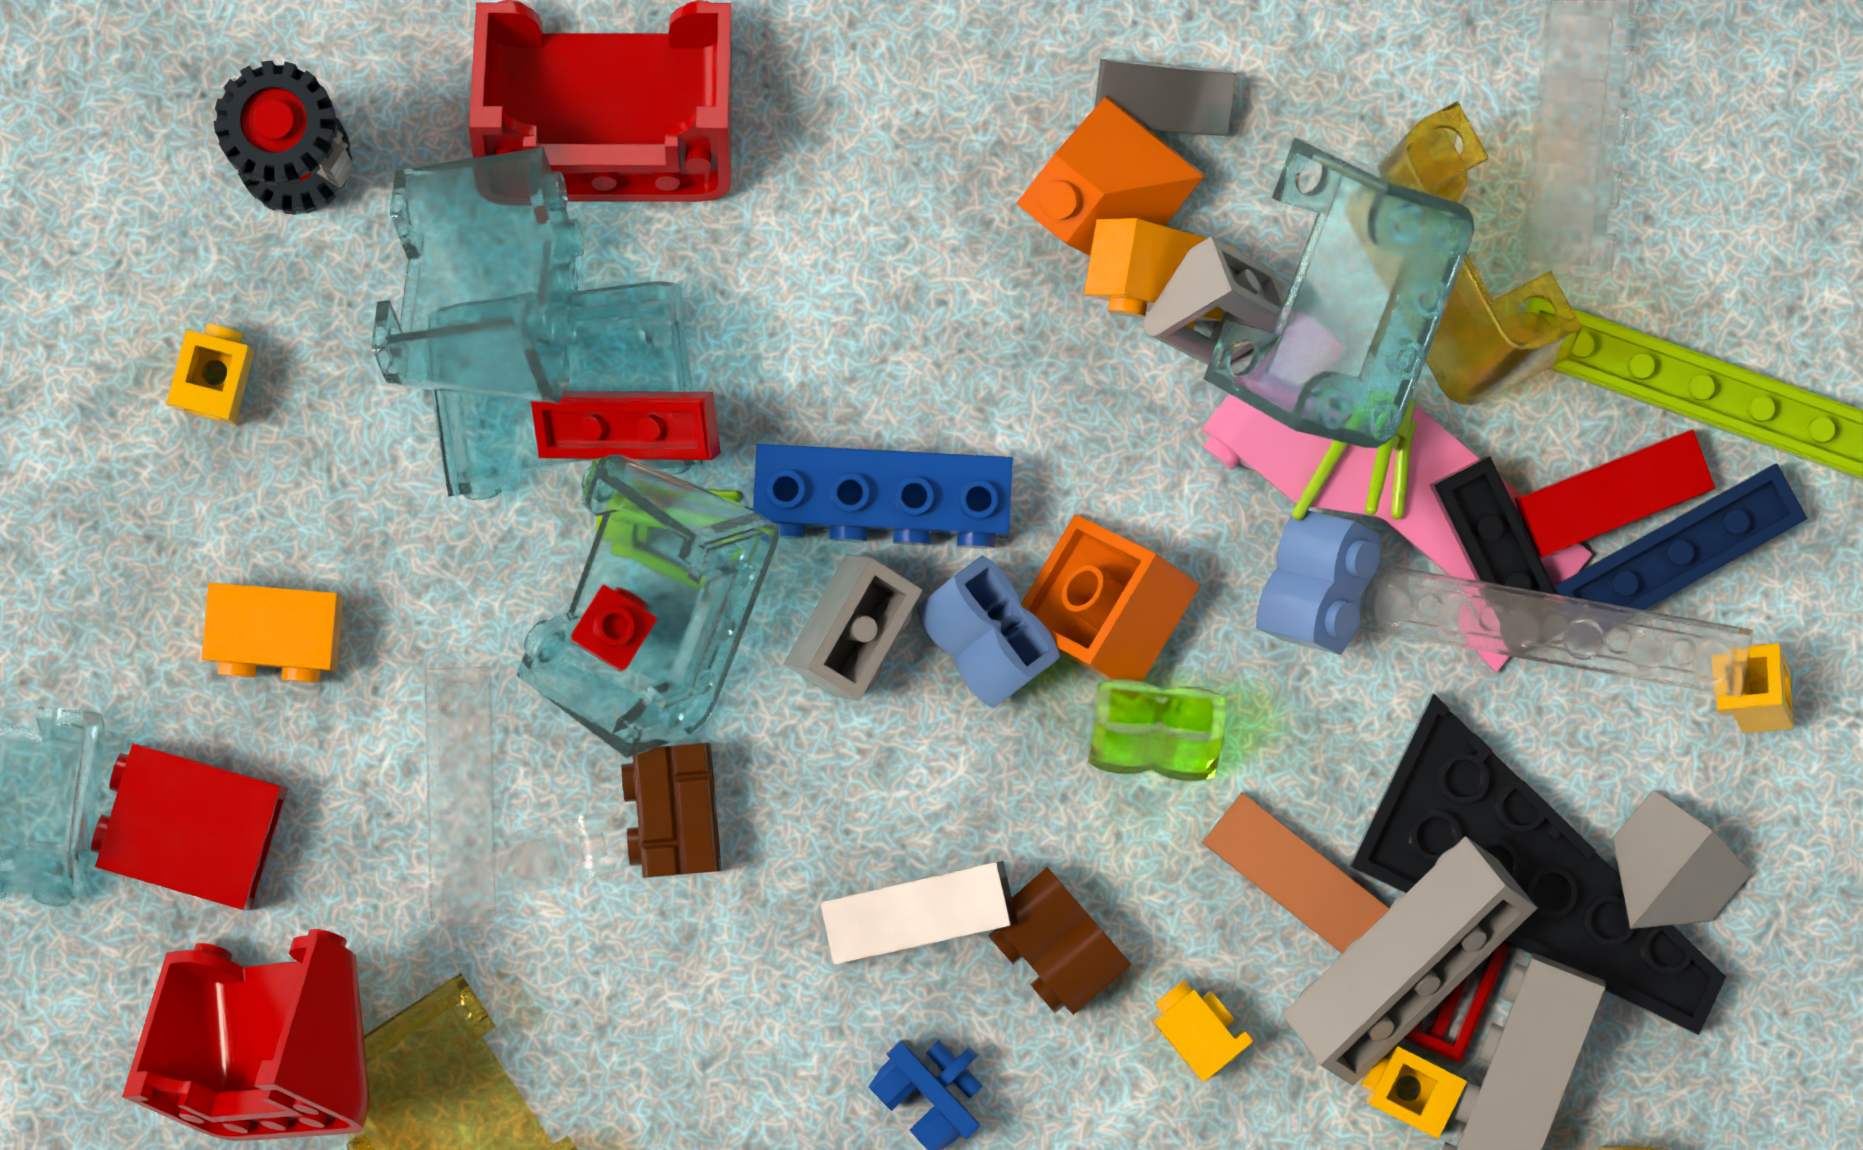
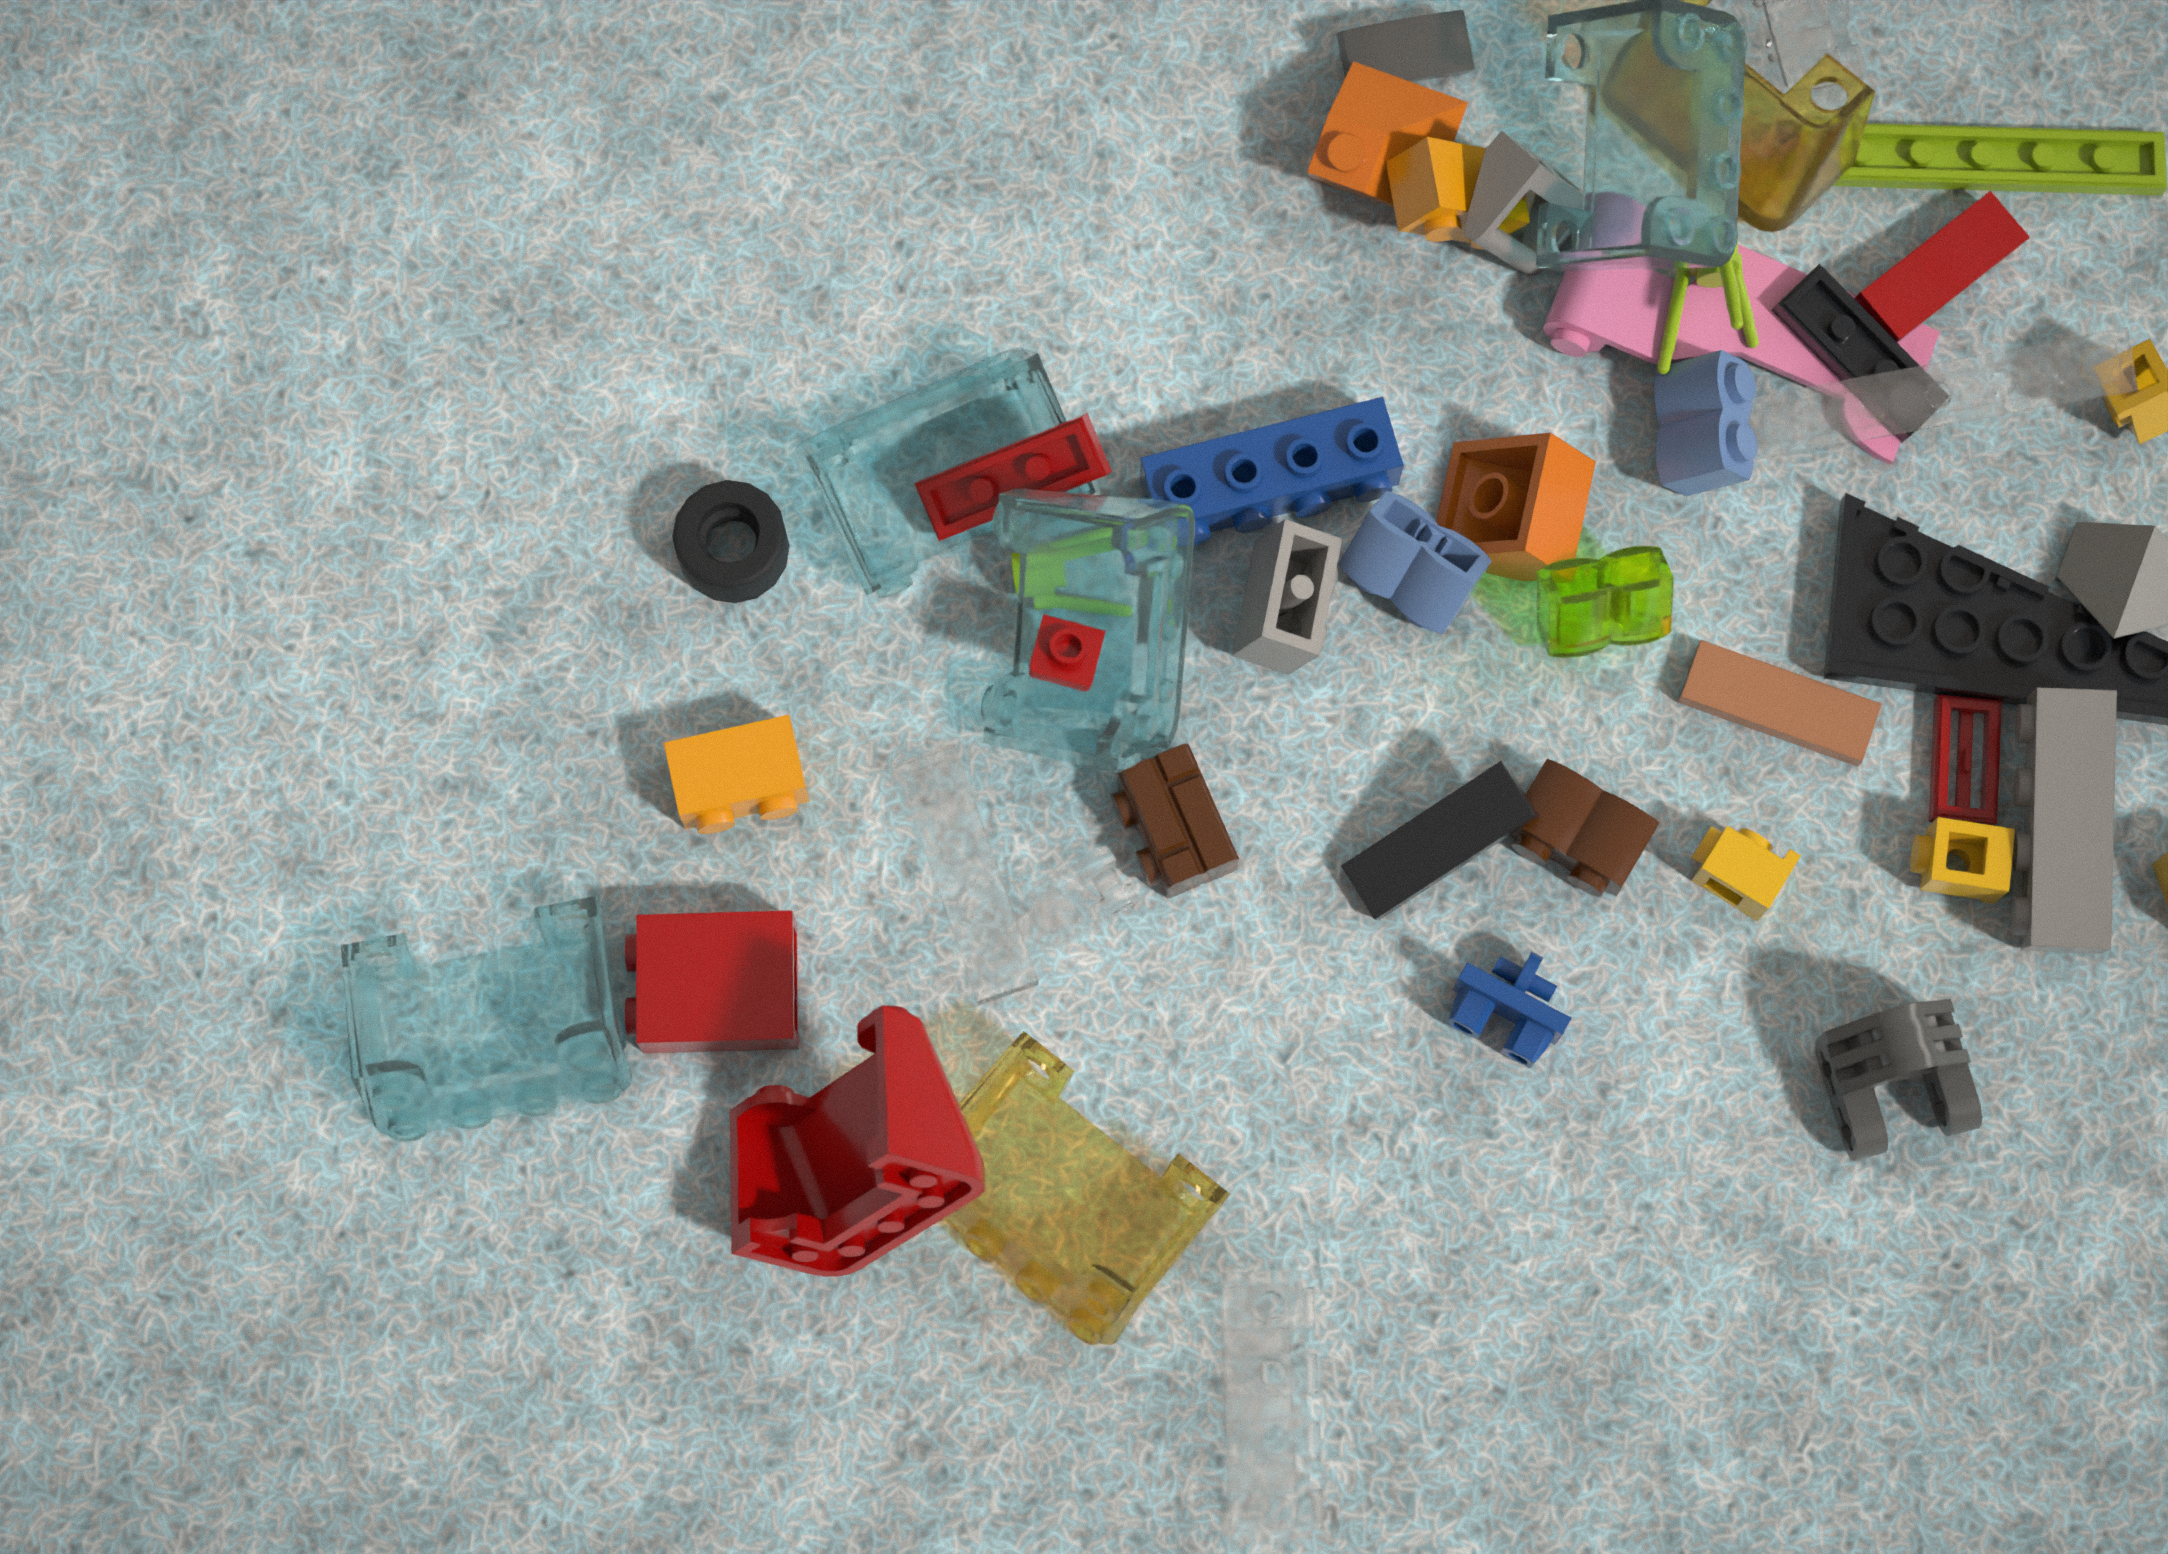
camera: 15 degrees left, 10 degrees down
(189, 387) = (607, 585): yellow brick -> none
(283, 137) = (614, 302): black plate -> none
(297, 395) = (721, 504): none -> black tyre
(483, 279) = (837, 374): clear light blue windscreen -> none
(611, 109) = (901, 218): red windscreen -> none
(1408, 961) = (1920, 732): light grey brick -> none
(1691, 544) = (2033, 285): dark blue plate -> none

